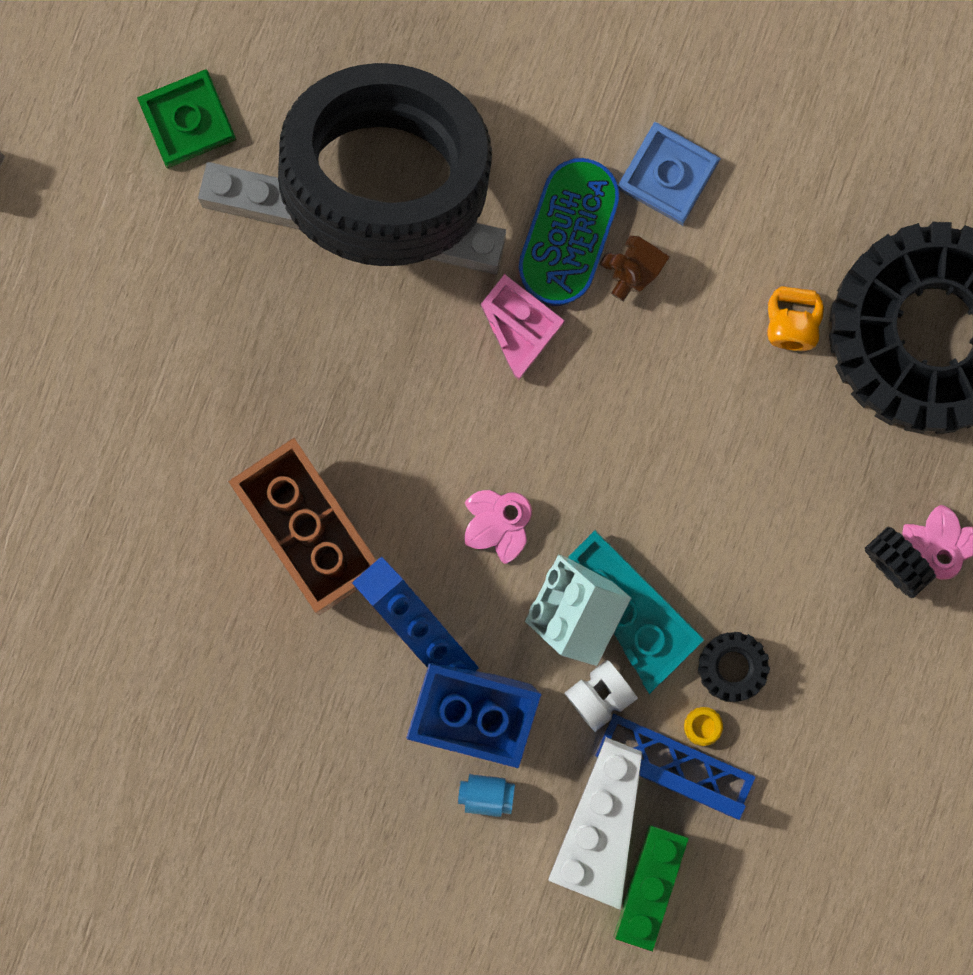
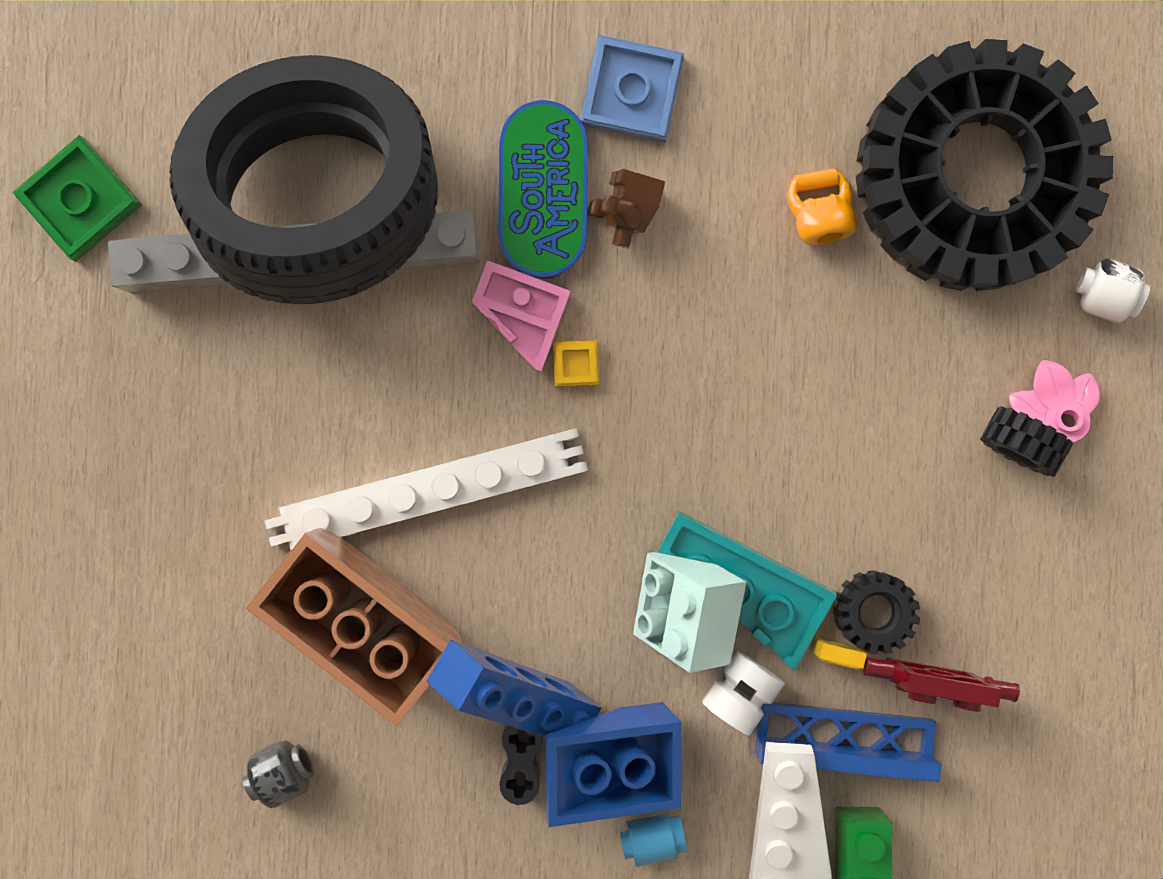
camera: 25 degrees left, 5 degrees up
(193, 639) = (278, 774): none -> dark grey head
(399, 446) = (431, 489): none -> white hinge
(399, 690) = (520, 758): none -> black axle
(494, 527) = (565, 542): bright pink plate -> none
(549, 382) = (576, 363): none -> yellow tile
(690, 690) = (838, 653): none -> yellow tile
(703, 726) = (860, 689): yellow tile -> none
(779, 746) = (928, 682): none -> dark red plate

